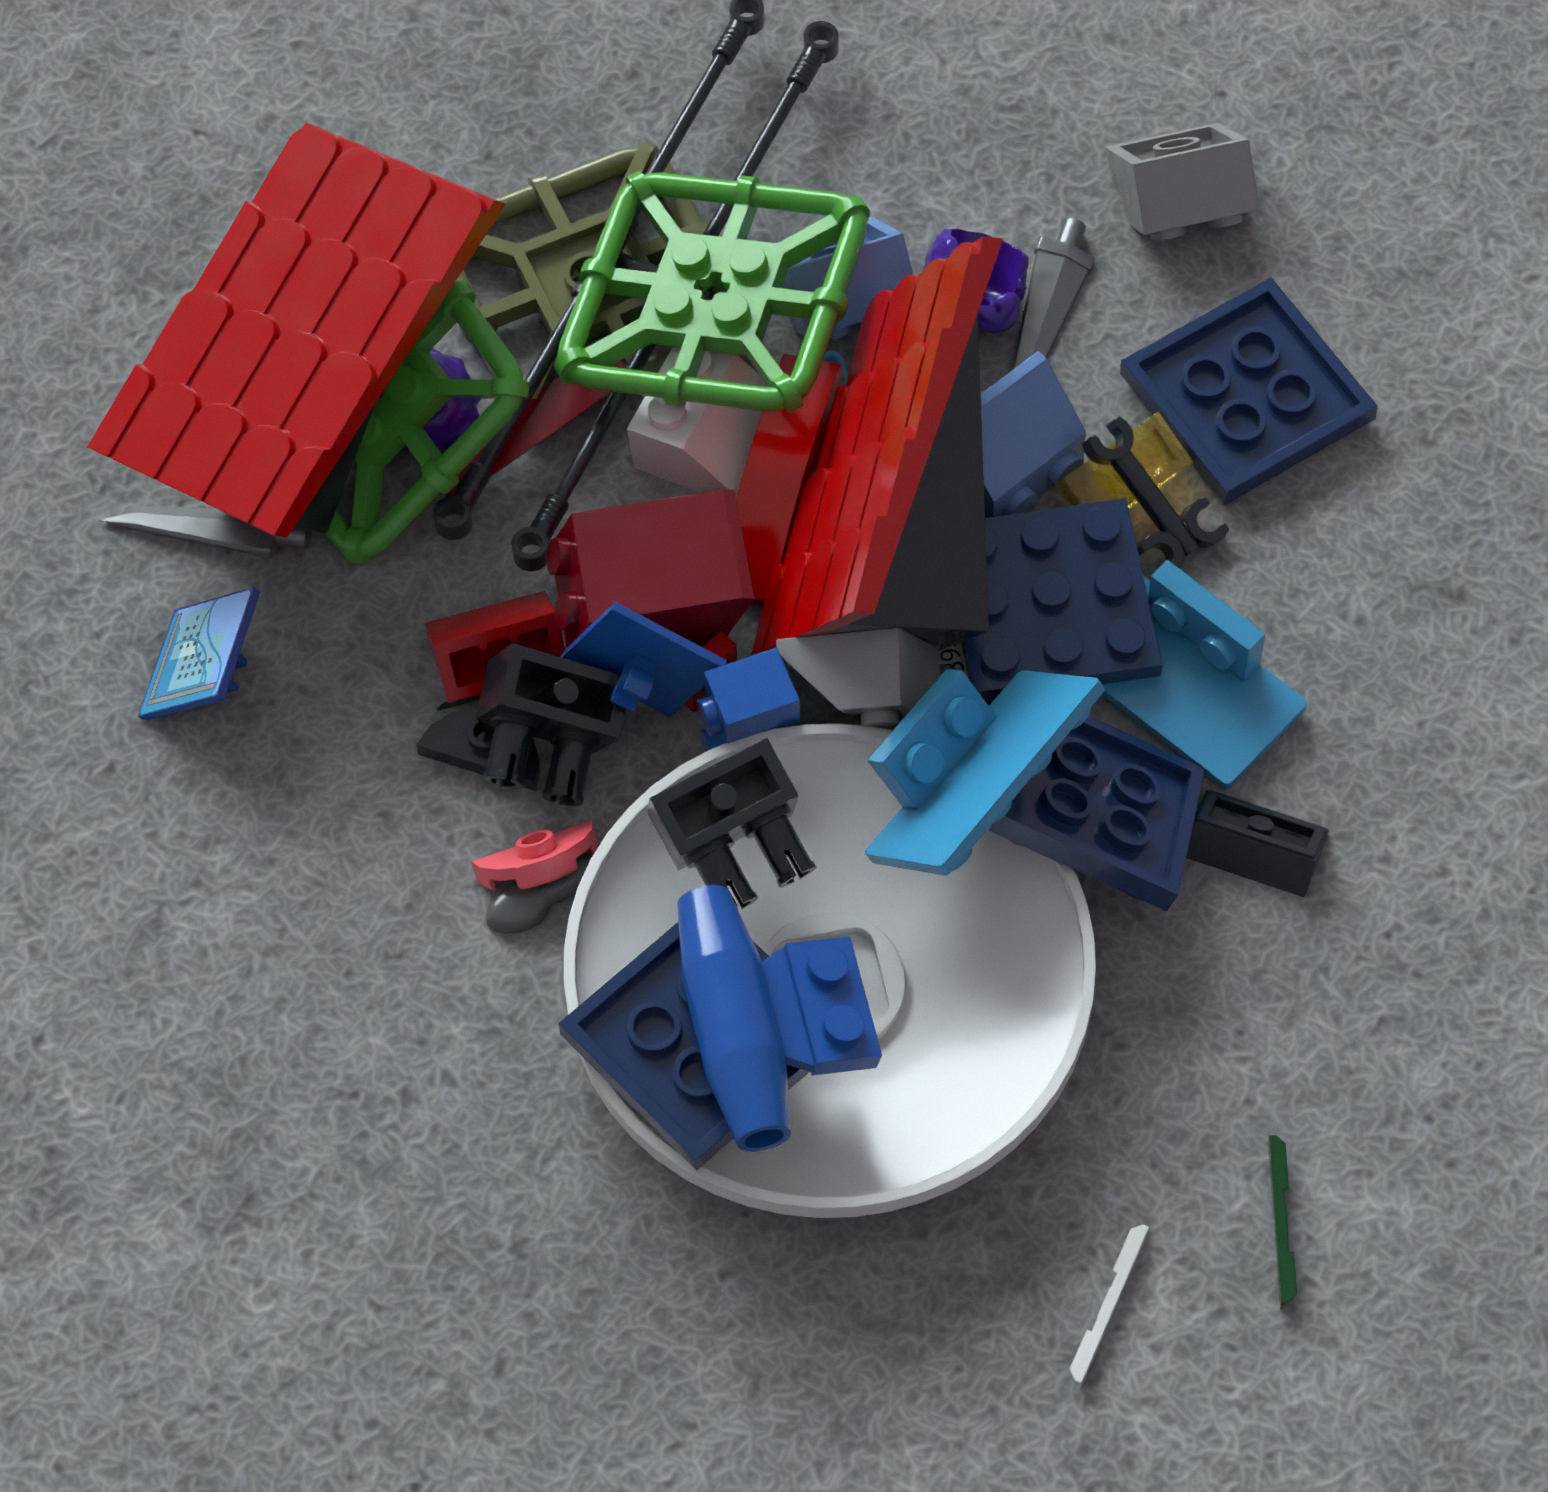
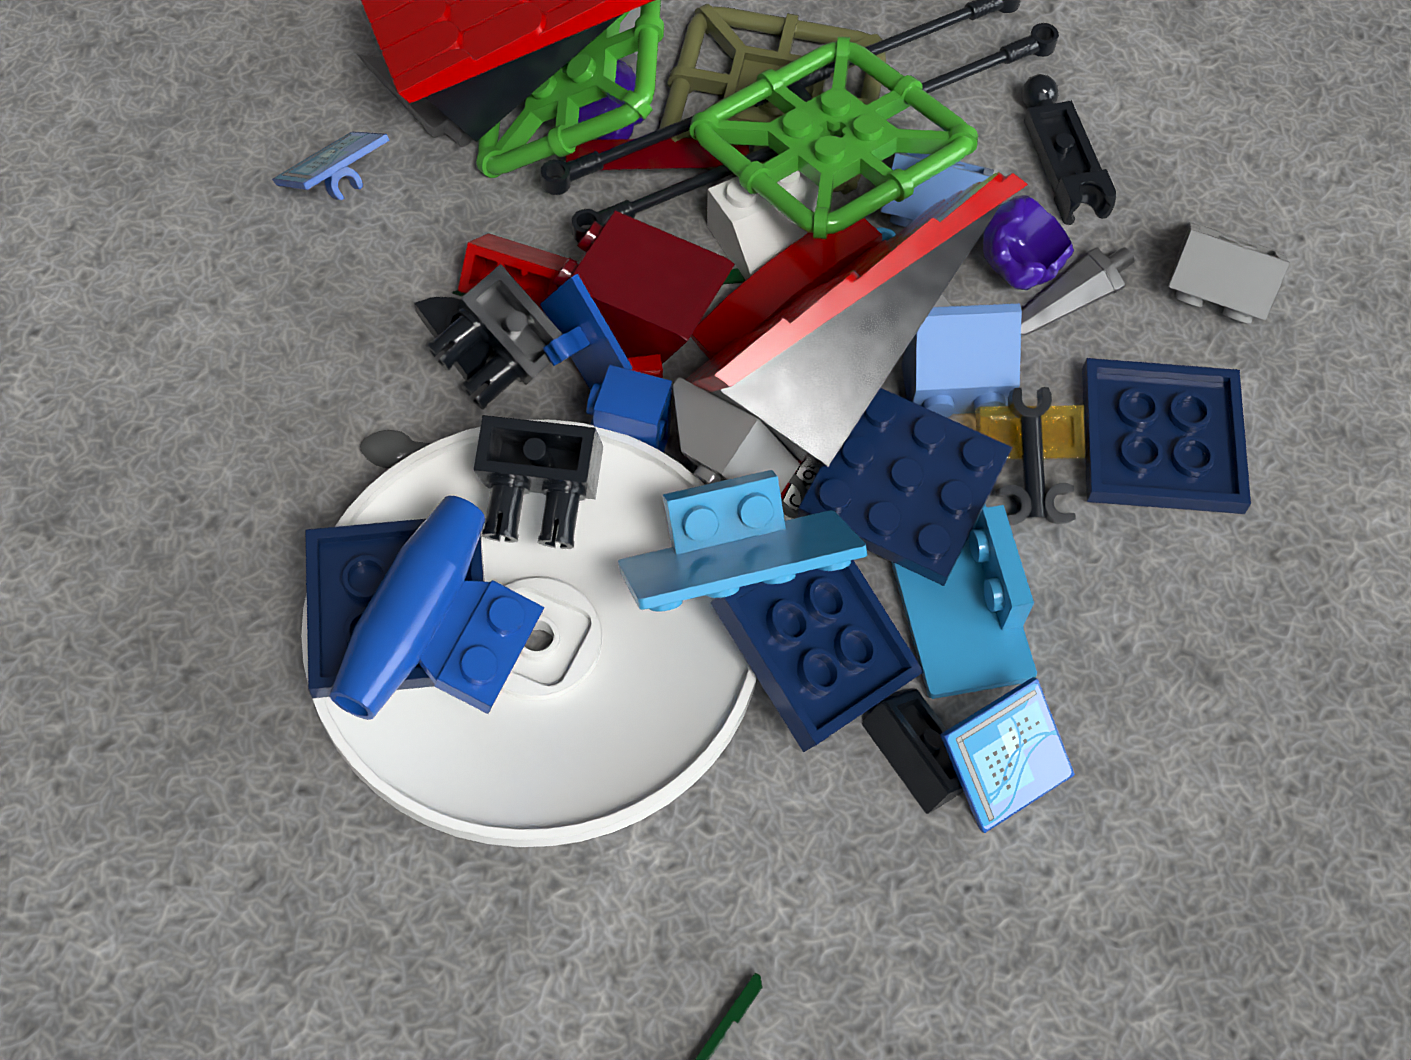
camera: 30 degrees right, 0 degrees up
(538, 857) = (421, 422): coral plate -> none
(931, 151) = (1065, 151): none -> black plate
(1123, 1268) = (569, 993): white piece -> none
(1340, 790) = (1008, 754): none -> piece

